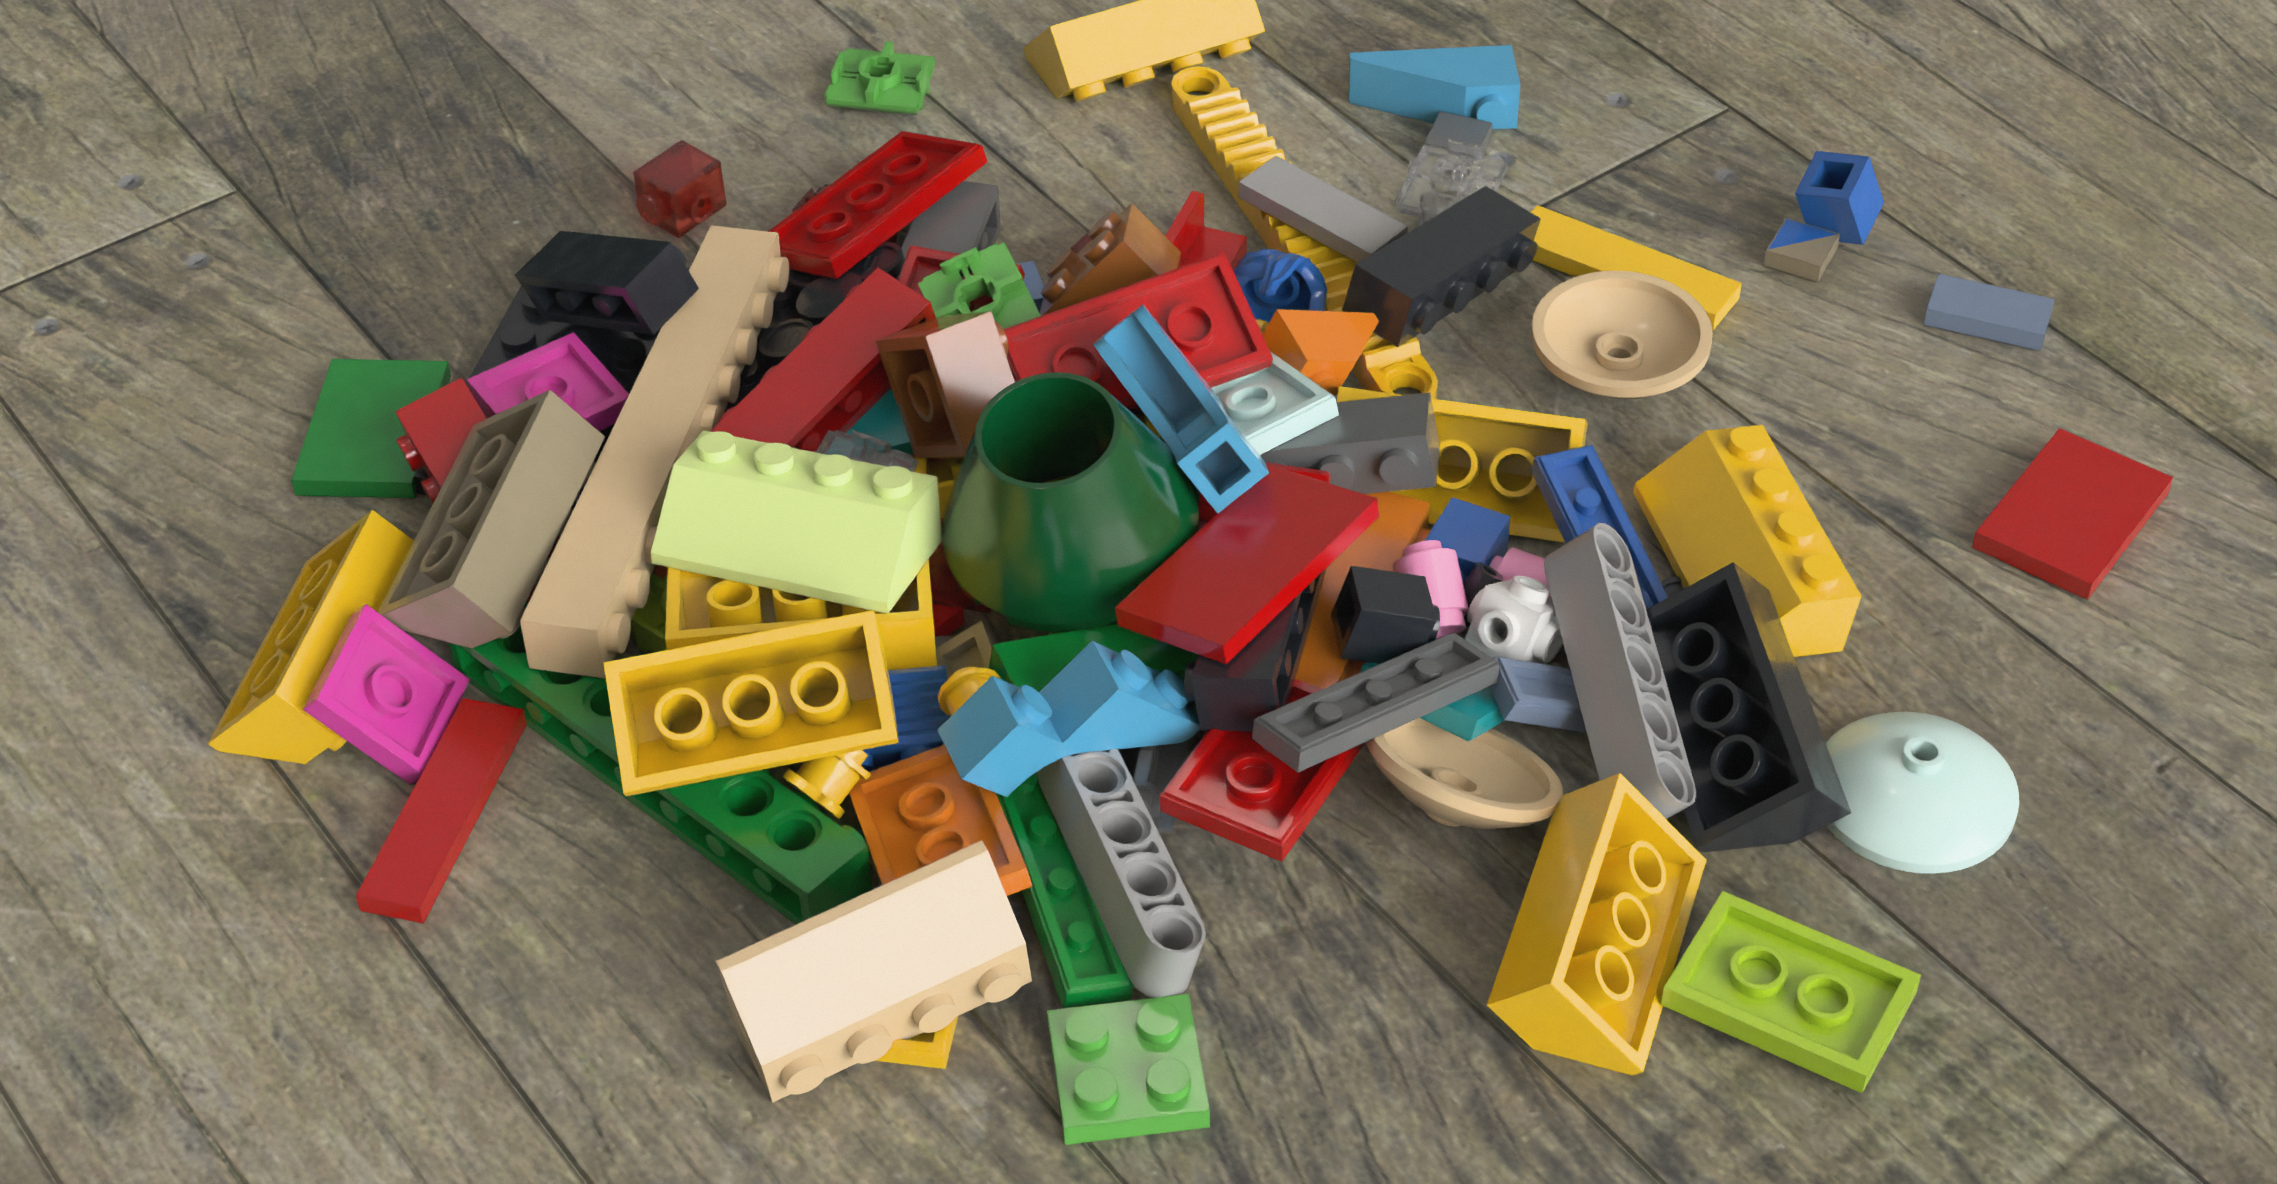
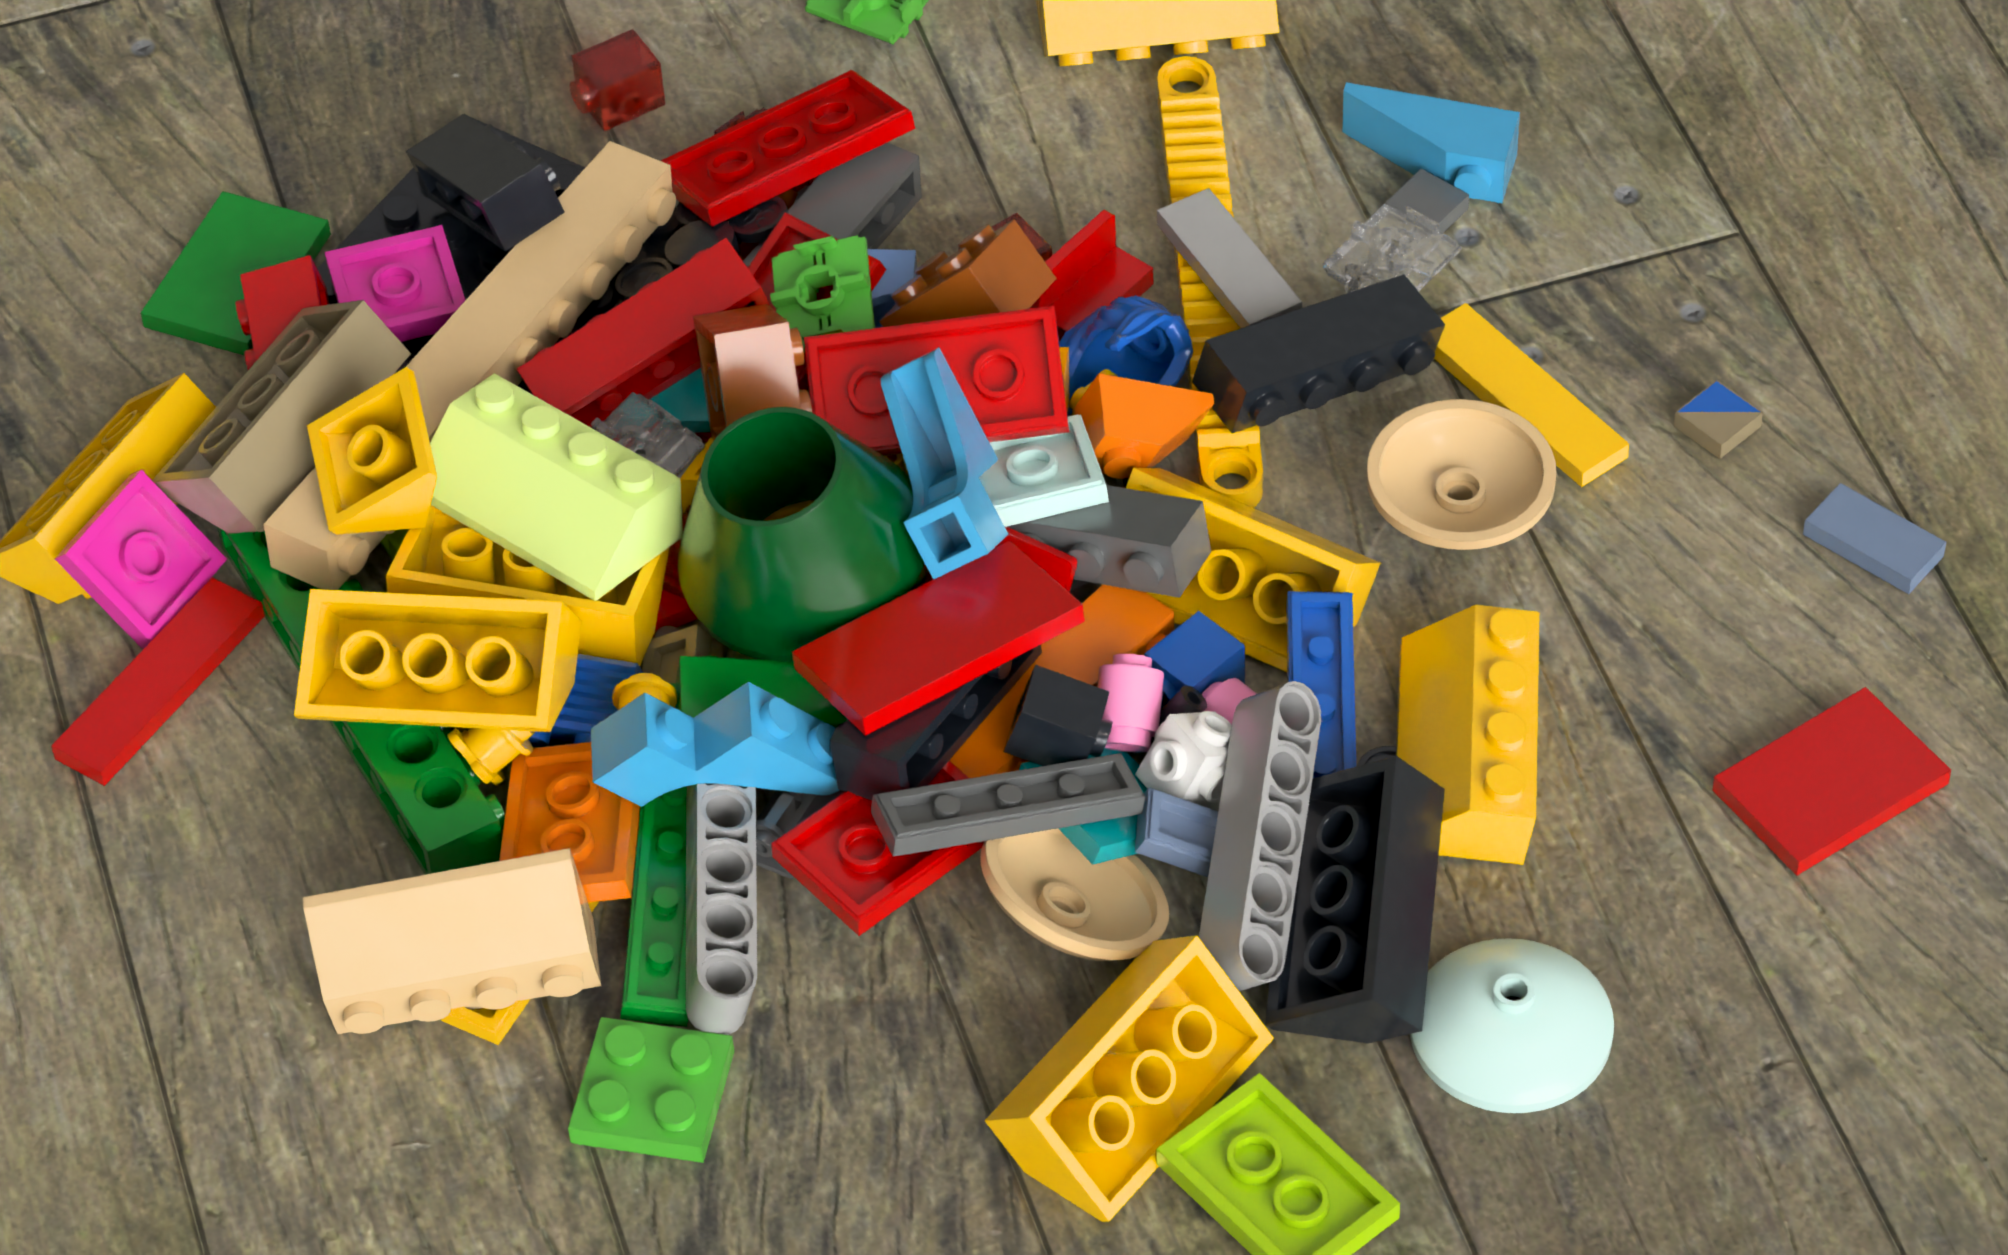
camera: 20 degrees right, 5 degrees up
(621, 529) = (375, 459): none -> yellow slope
(1840, 195) = (1773, 372): blue brick -> none

